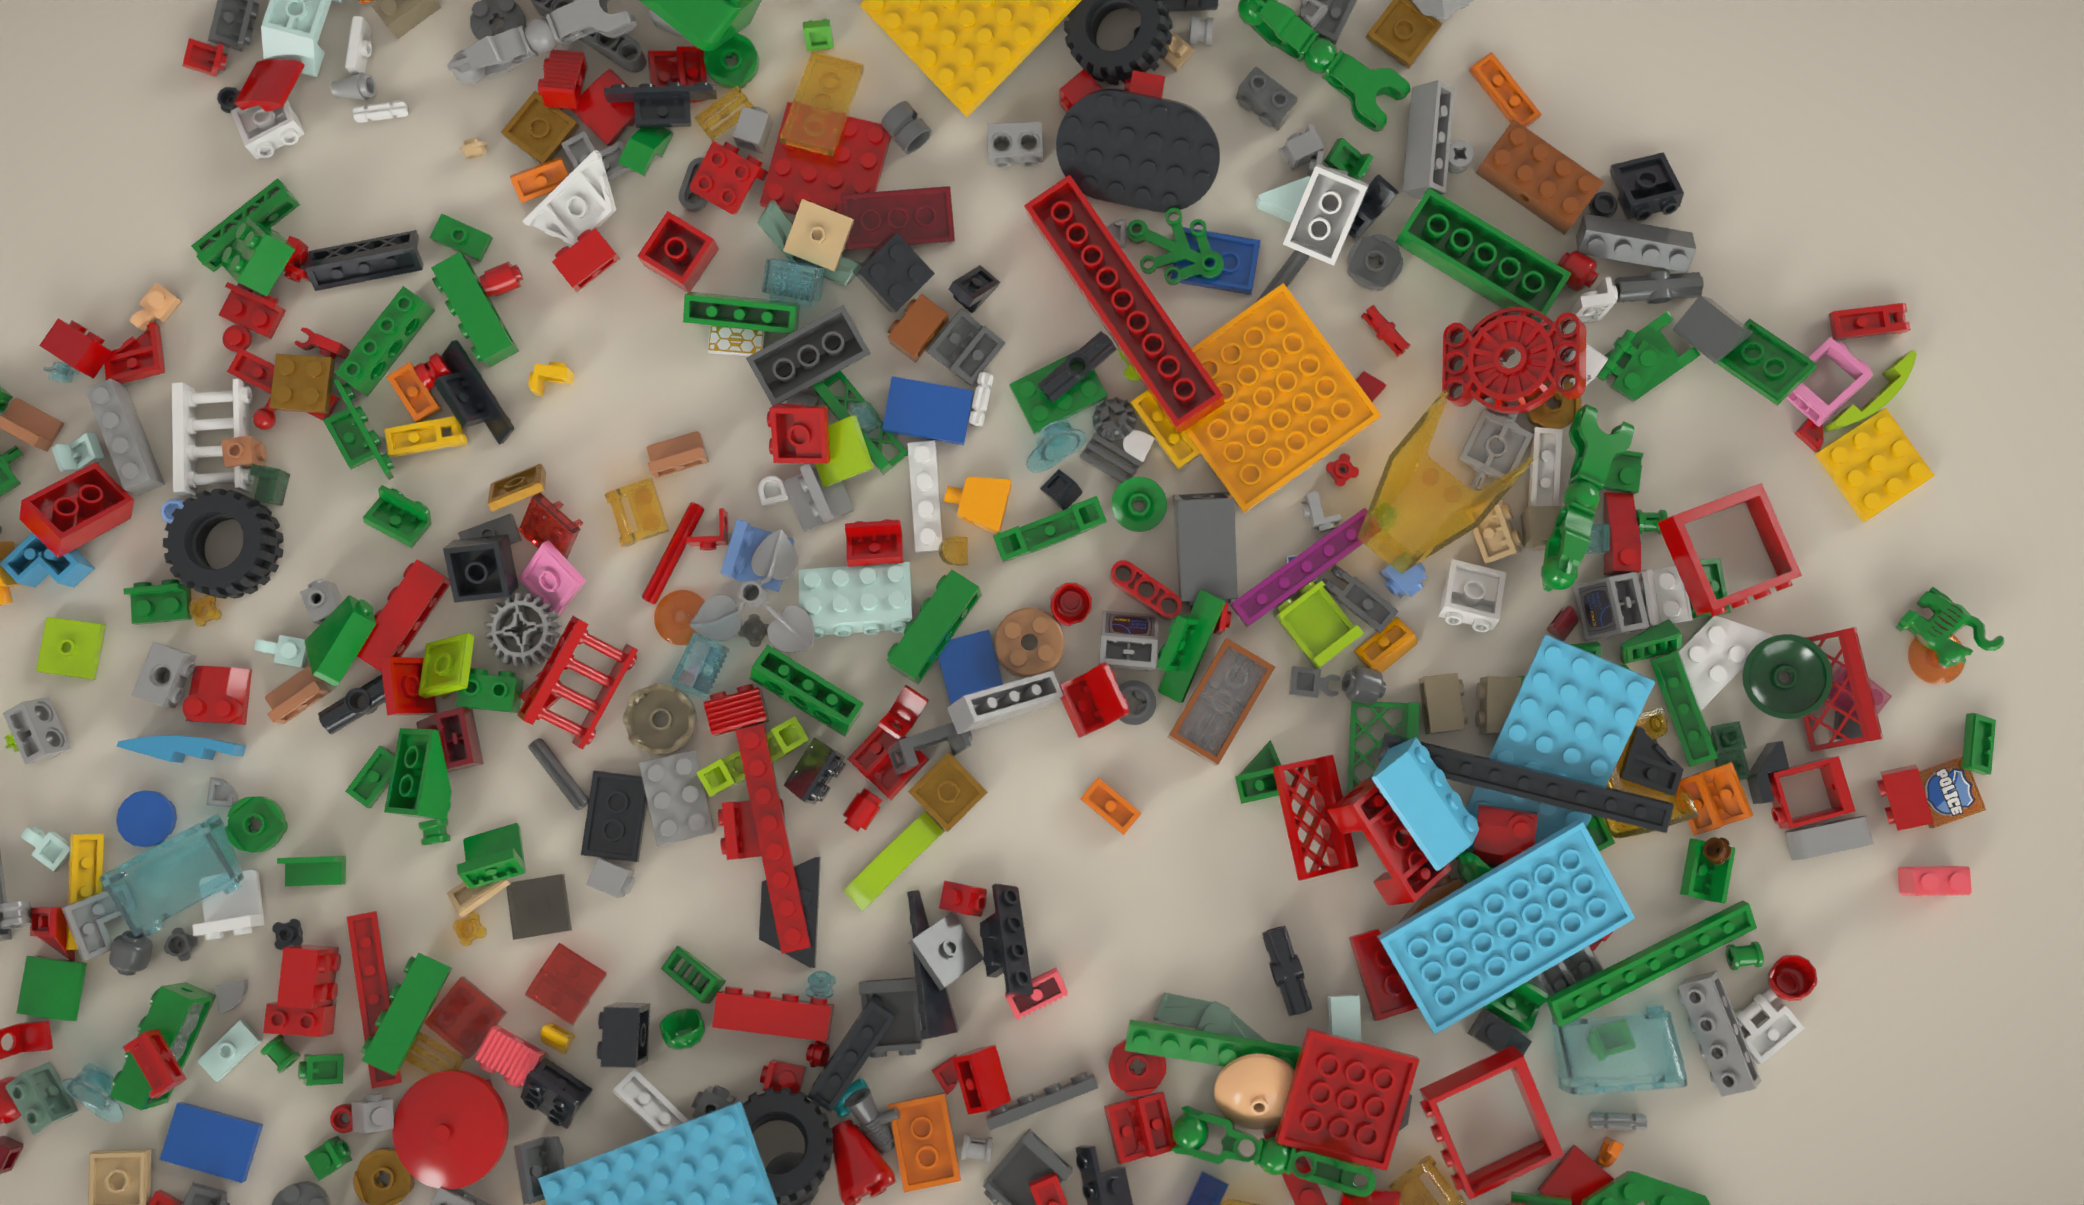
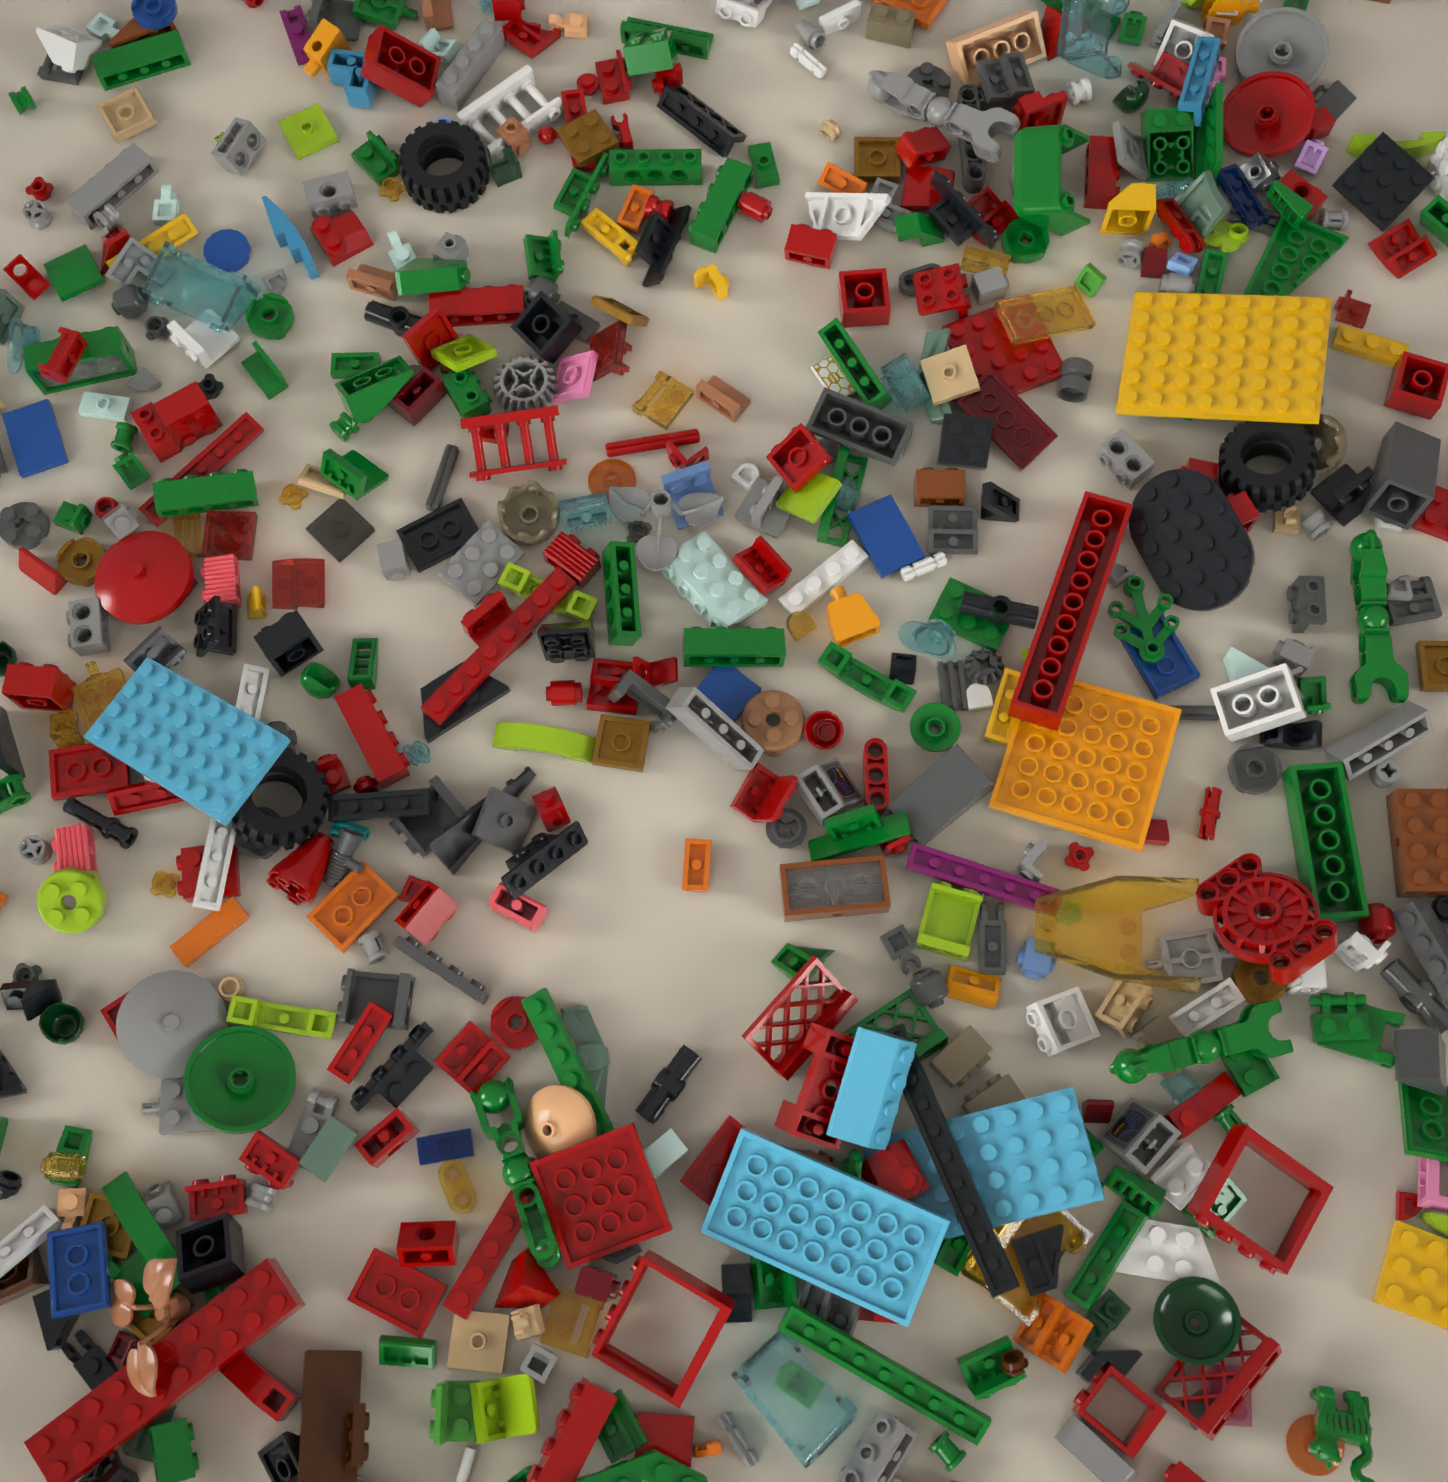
camera: 55 degrees right, 10 degrees down
(432, 542) = (541, 284): none -> dark grey head
(1417, 1153) = (597, 1284): none -> dark red brick

